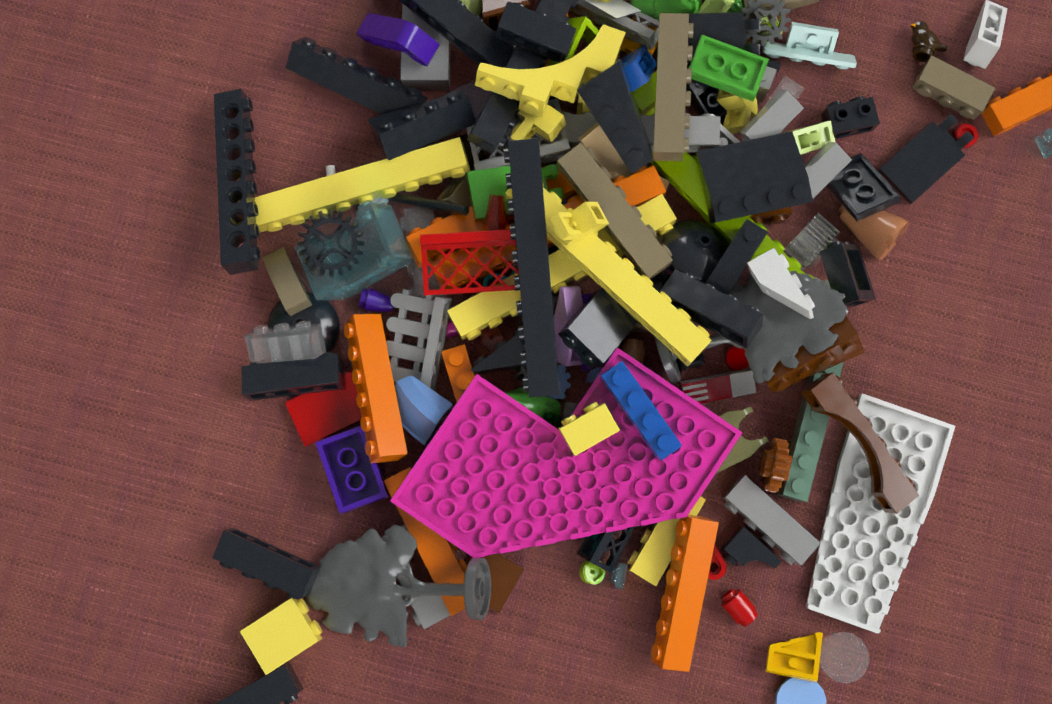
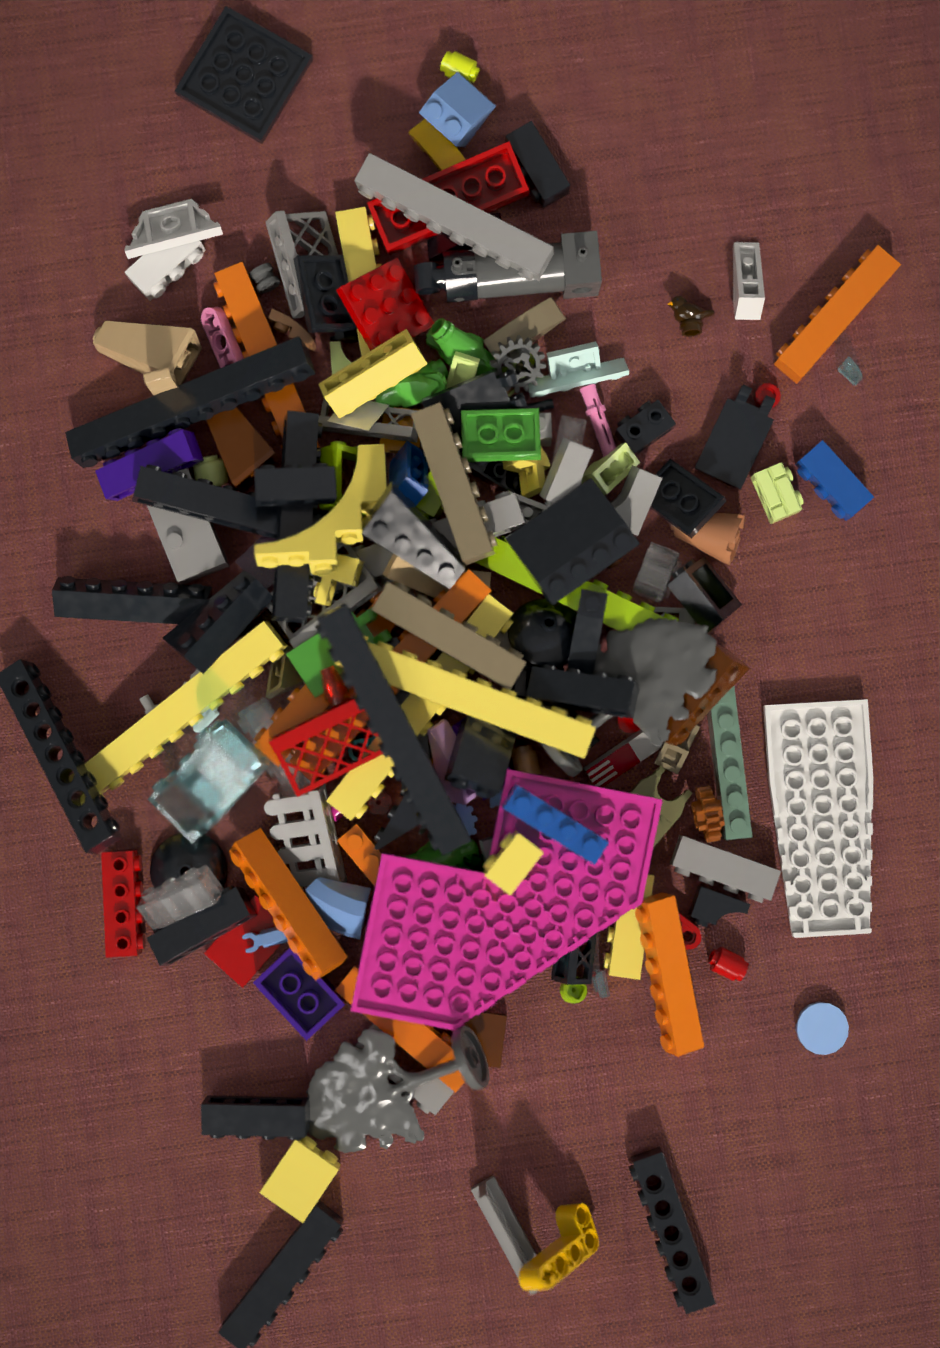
camera: 20 degrees left, 5 degrees up
(236, 321) = (120, 899): none -> red brick
(286, 281) = (152, 833): dark tan slope -> none
(318, 261) = (170, 780): black gear -> none
(344, 411) = (267, 938): none -> medium blue bar
(375, 301) = (248, 815): dark purple cone -> none
(399, 36) = (156, 540): dark purple beam -> none
(430, 204) = (258, 698): black bar -> none
(579, 223) = (419, 667): light yellow brick -> none
(765, 401) = (672, 756): none -> dark tan slope
(775, 280) = (633, 638): white slope -> none
(796, 658) = (801, 989): yellow wing -> none
(813, 89) = (595, 411): none -> bright pink pin
(844, 657) = (846, 968): clear tile -> none
(888, 481) = (823, 786): reddish brown arch -> none
(943, 217) = (777, 492): none -> yellowish green brick
(953, 88) = (735, 353): dark tan brick -> none
(997, 228) = (833, 481): none -> blue brick

